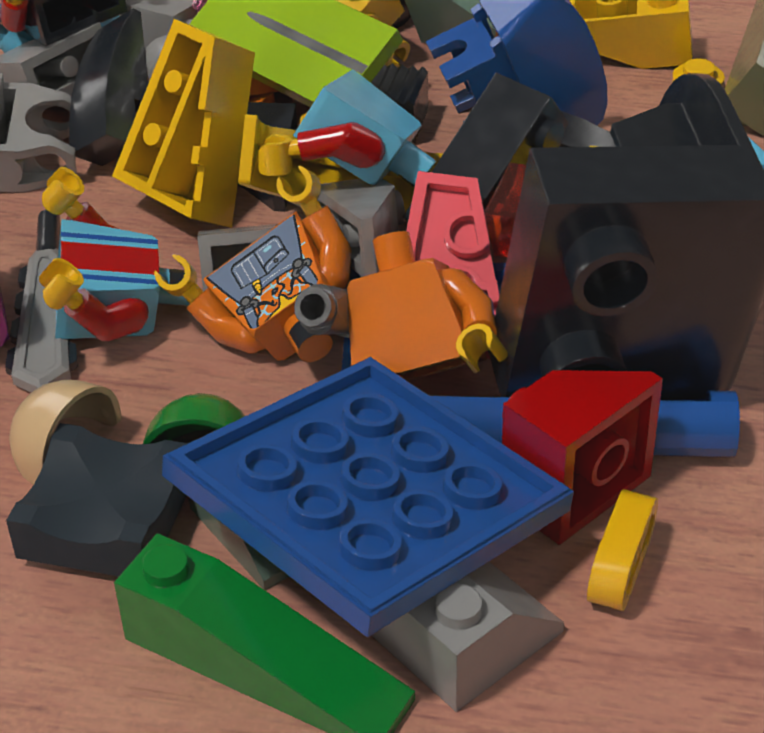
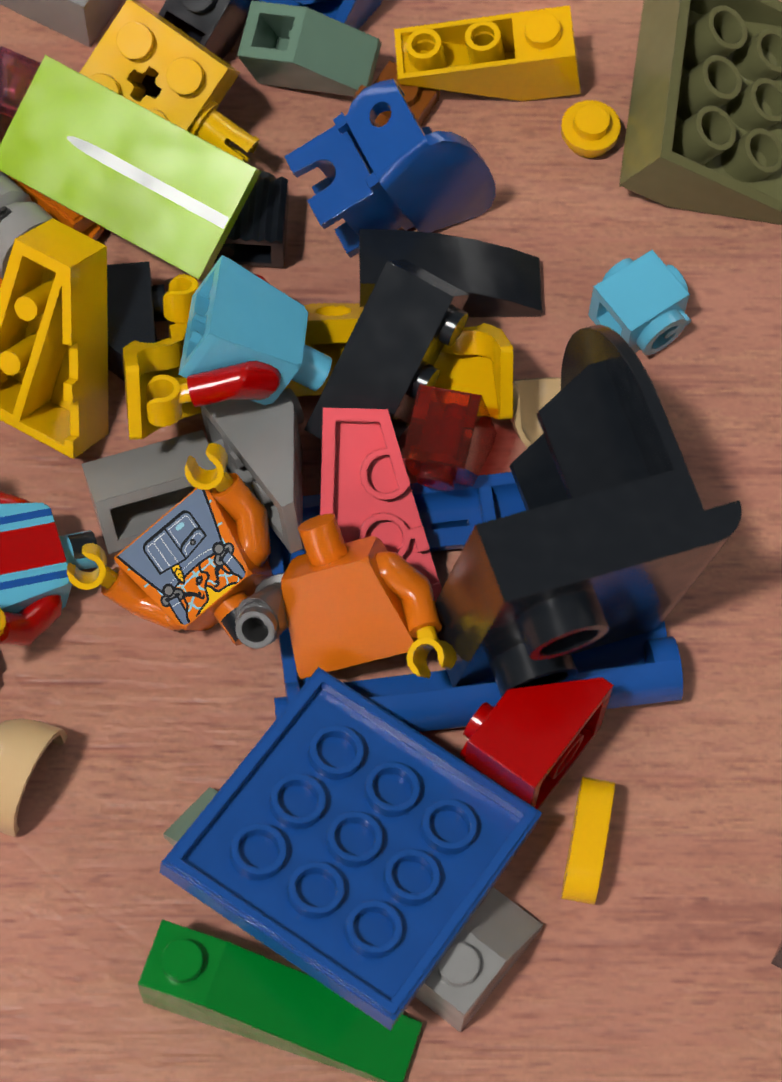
camera: 15 degrees left, 25 degrees up
(95, 503) = (86, 864): black brick -> none
(191, 414) = (156, 750): green helmet -> none

